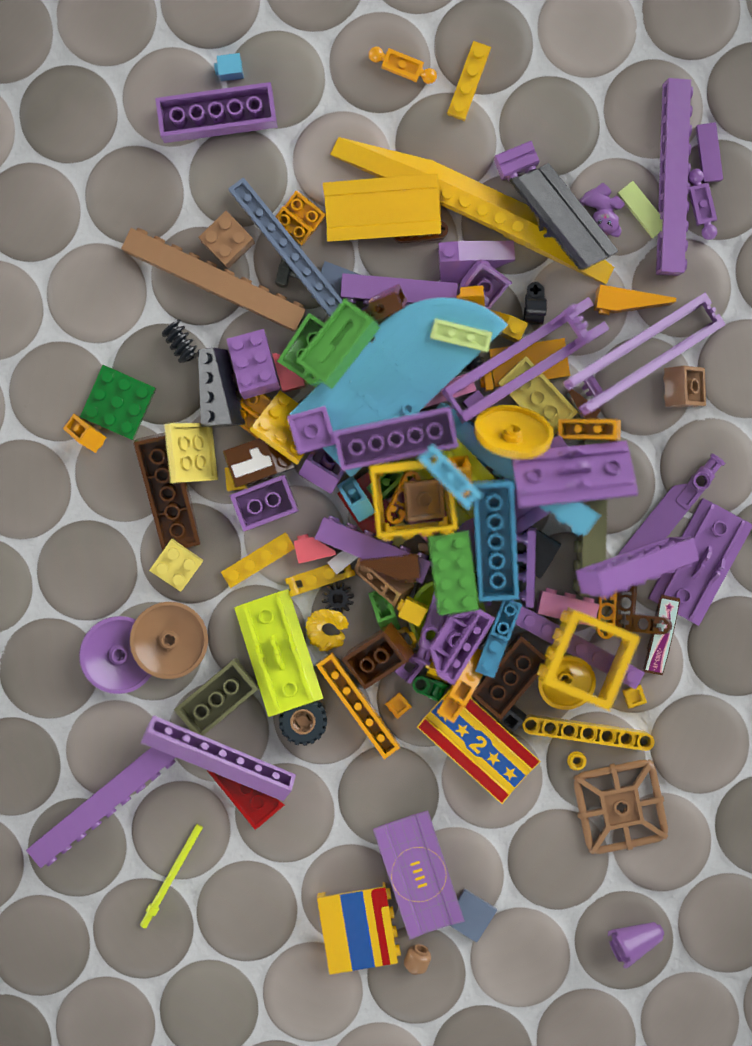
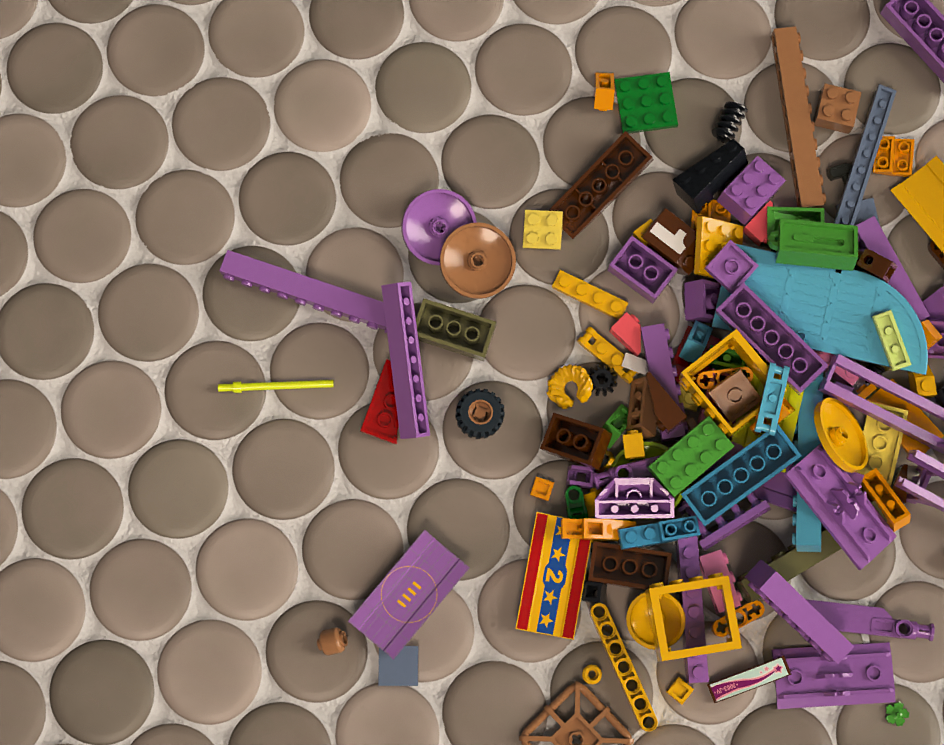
camera: 60 degrees right, 10 degrees down
(190, 452) = (646, 183): light yellow plate -> none
(278, 653) = (524, 358): neon yellow hinge -> none
(358, 705) = (522, 452): light orange brick -> none
(358, 929) = (328, 572): panel -> none
(545, 552) = (755, 531): black slope -> none
(634, 619) = (748, 644): reddish brown beam -> none

